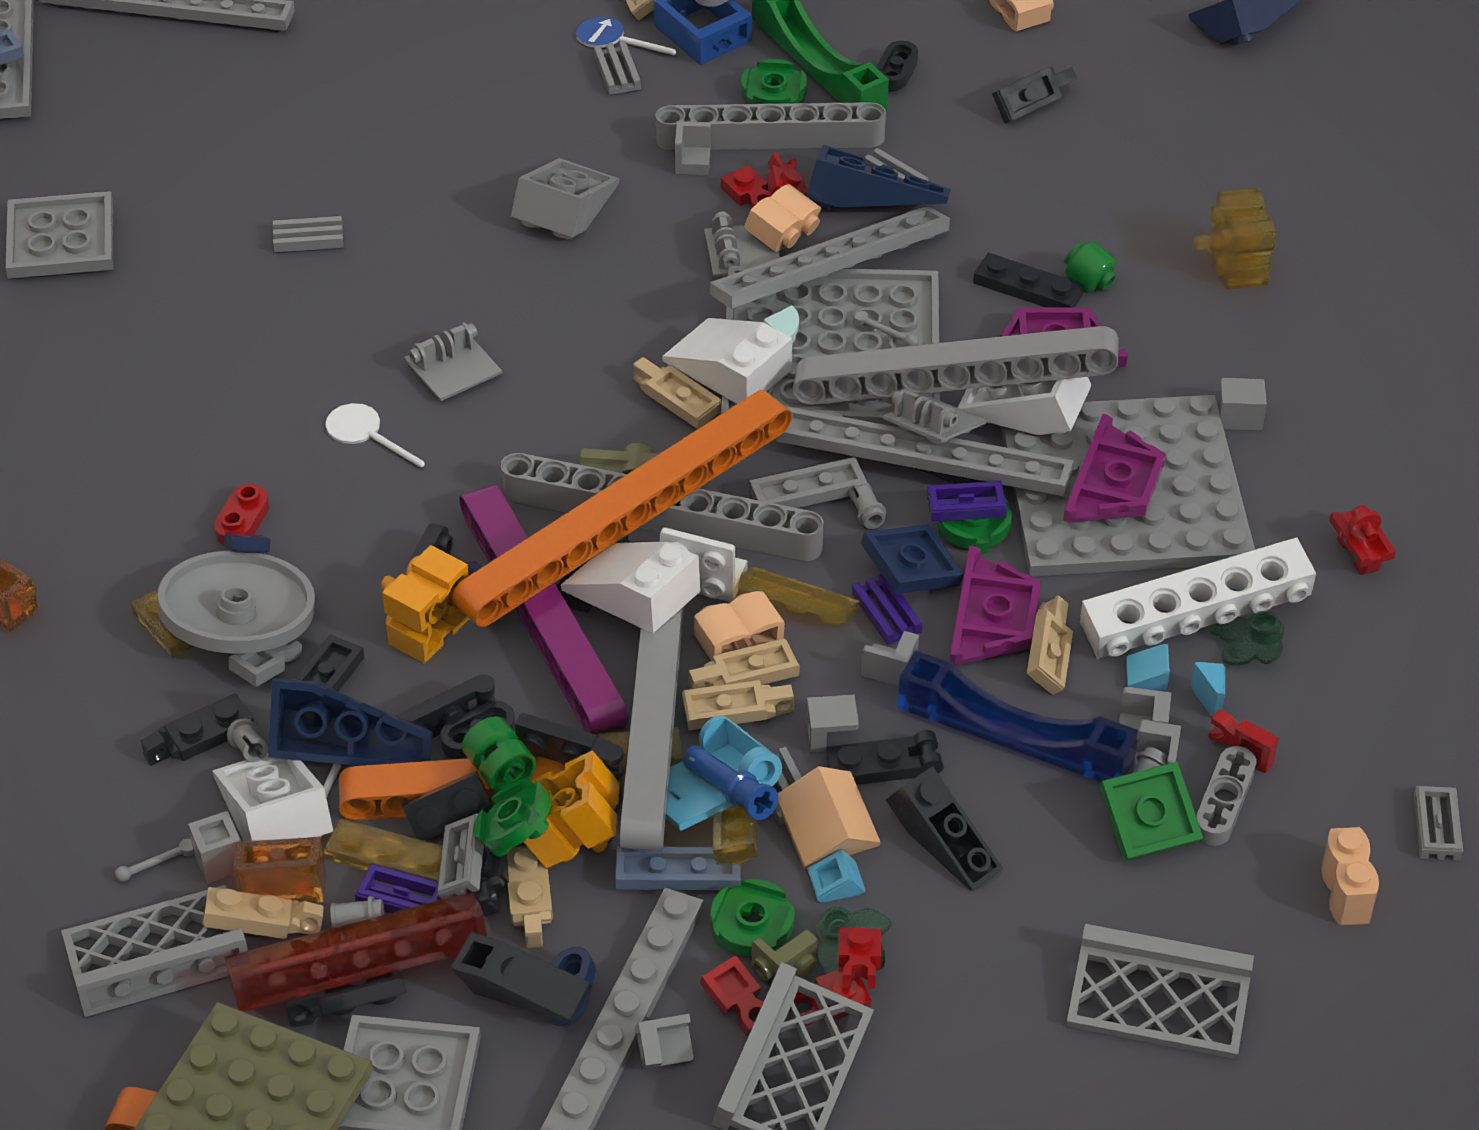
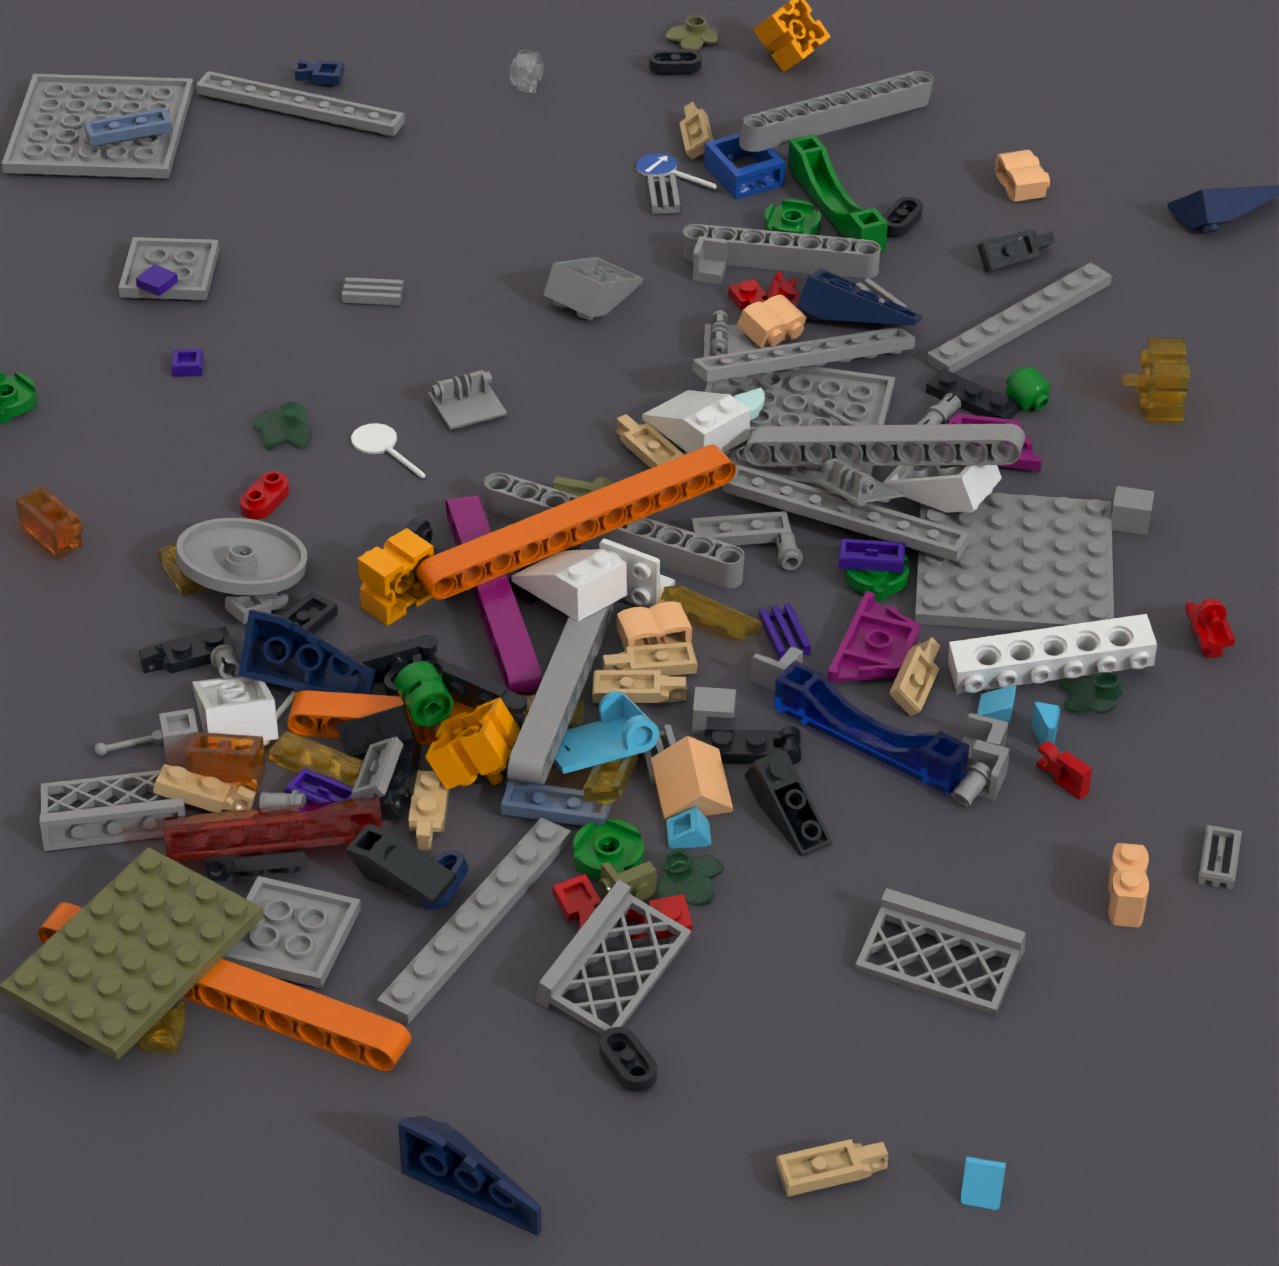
camera: 10 degrees right, 5 degrees down
(50, 253) = (156, 280): none -> dark purple tile
(109, 354) = (187, 362): none -> dark purple tile
(241, 425) = (281, 425): none -> clear green plate
(247, 542) = (262, 515): dark blue tile -> none
(515, 817) = (427, 739): green plate -> none
(664, 1041) = (510, 930): light grey panel -> none
(739, 787) = (618, 744): blue pin -> none
(859, 954) = (689, 885): red plate -> none
(912, 559) = (814, 594): dark blue plate -> none
(995, 312) = (942, 411): none -> light grey pin
(1056, 178) = (1019, 318): none -> light grey plate
(1115, 476) = (1003, 551): magenta wing -> none
(1150, 811) = (967, 812): green plate -> none
(1222, 780) = (1038, 823): light grey beam -> none

